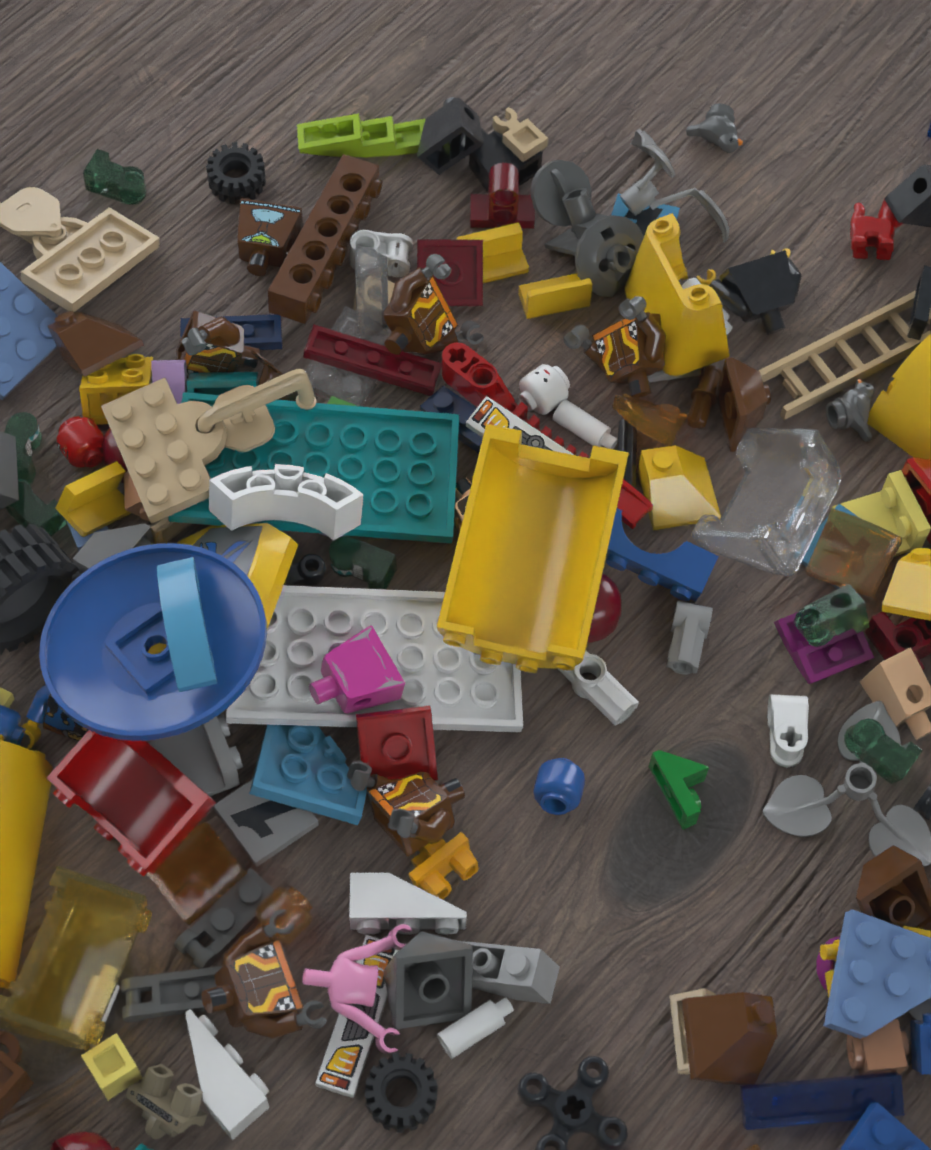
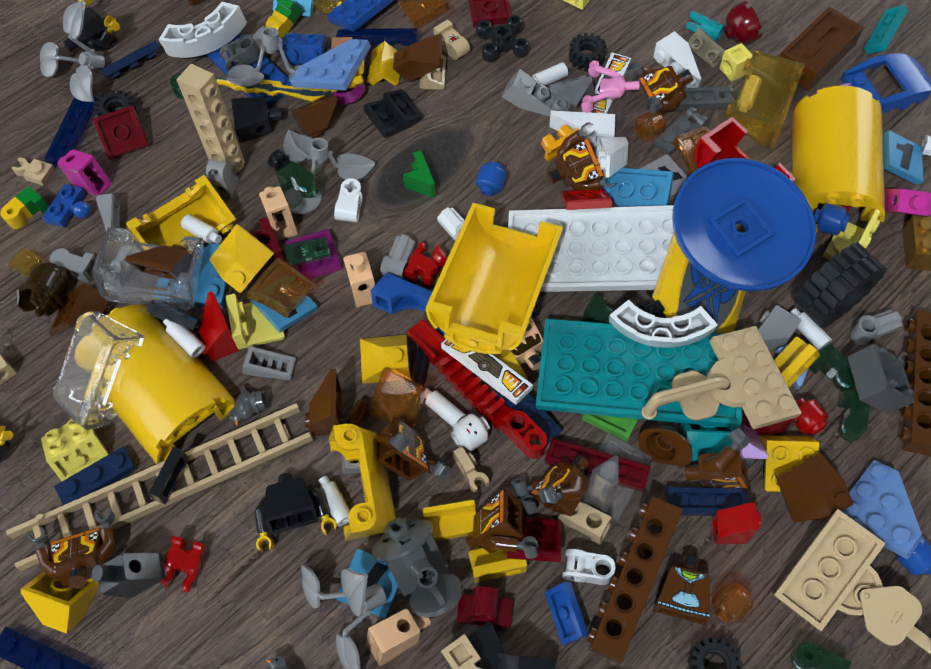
camera: 170 degrees left, 0 degrees up
(185, 625) = (729, 224): dark azure slope -> none
(197, 292) = (736, 524): none -> red slope
(210, 227) = (732, 602): none -> clear orange head
(351, 828) = (612, 154): none -> white slope
(358, 674) = (611, 222): dark pink torso -> none
(406, 207) = (566, 613): none -> blue plate
(494, 274) = (500, 526): none -> reddish brown torso
(542, 348) = (467, 464): none -> tan plate
(607, 163) = (388, 641): none -> light nougat torso
(645, 625) = (425, 266): none -> red animal
(671, 1098) = (452, 42): none -> tan leg
(739, 585) = (359, 273): none -> light nougat torso
(754, 924) = (392, 113): none -> black slope
(778, 501) = (328, 330): clear windscreen -> none
(798, 1032) = (382, 65): none -> yellow panel
(857, 459) = (261, 354): none -> light grey slope

